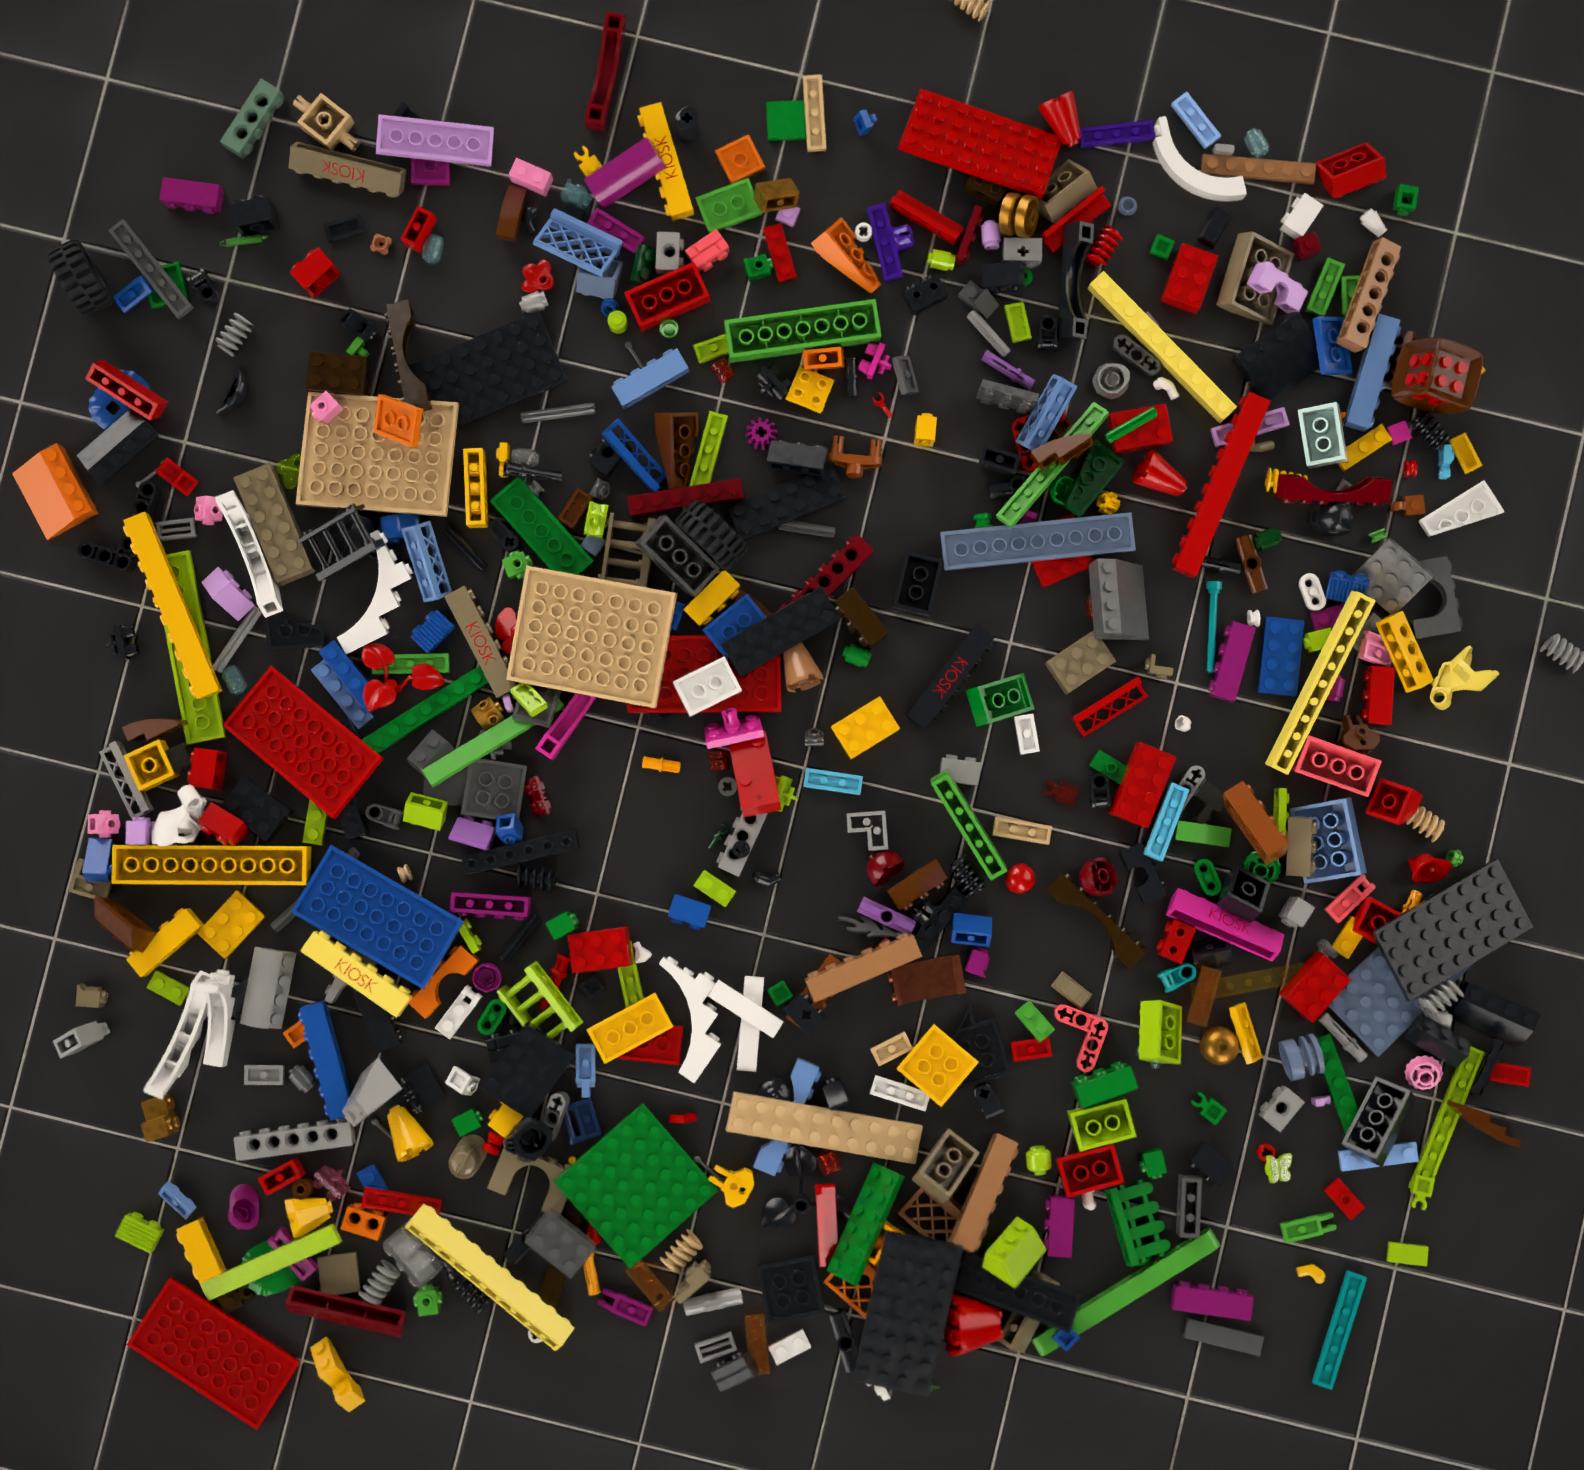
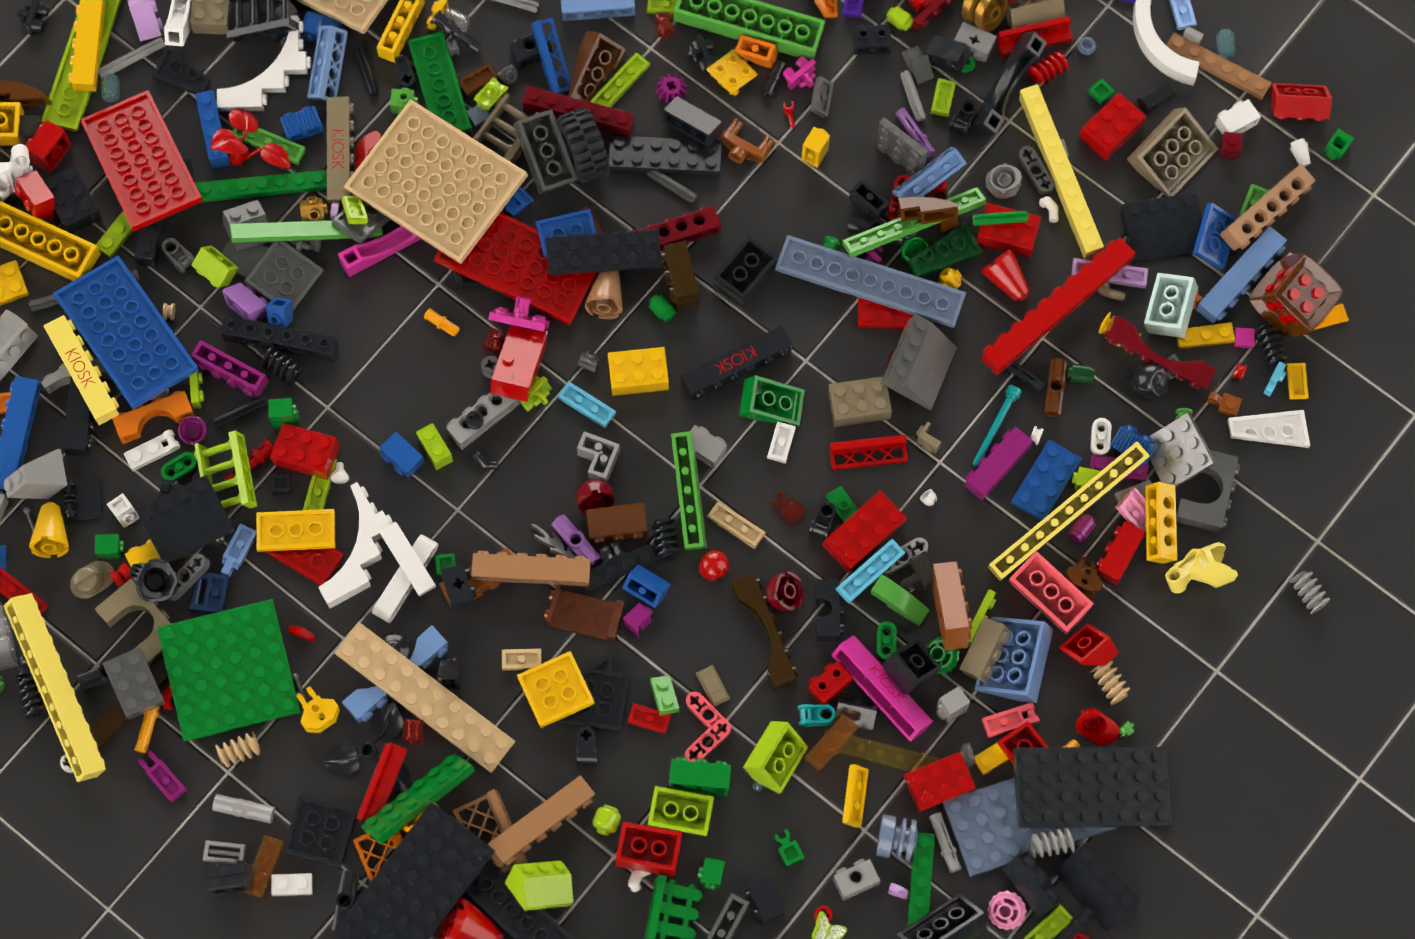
camera: 25 degrees right, 15 degrees down
(341, 694) = (196, 142): medium blue plate -> none
(538, 804) = (320, 295): dark red hinge -> none
(650, 1285) = (194, 766): clear orange plate -> none
(695, 1277) = (241, 775): dark tan plate -> none
(707, 686) = (515, 269): white plate -> none
(712, 599) = (558, 202): yellow brick -> none
(717, 837) = (459, 406): dark green hand -> none
(899, 1093) = (509, 702): white plate -> none
(945, 1166) = (517, 780): dark tan brick -> none
(990, 235) = (953, 17): lavender brick -> none
(1059, 1226) = (596, 889): magenta brick -> none
(1219, 1045) = (825, 797): pearl gold cylinder -> none
(1289, 293) = (1197, 175): lavender arch -> none
(1325, 287) = (1233, 186): bright green plate -> none
(1443, 1018) = (1046, 866): white cone -> none

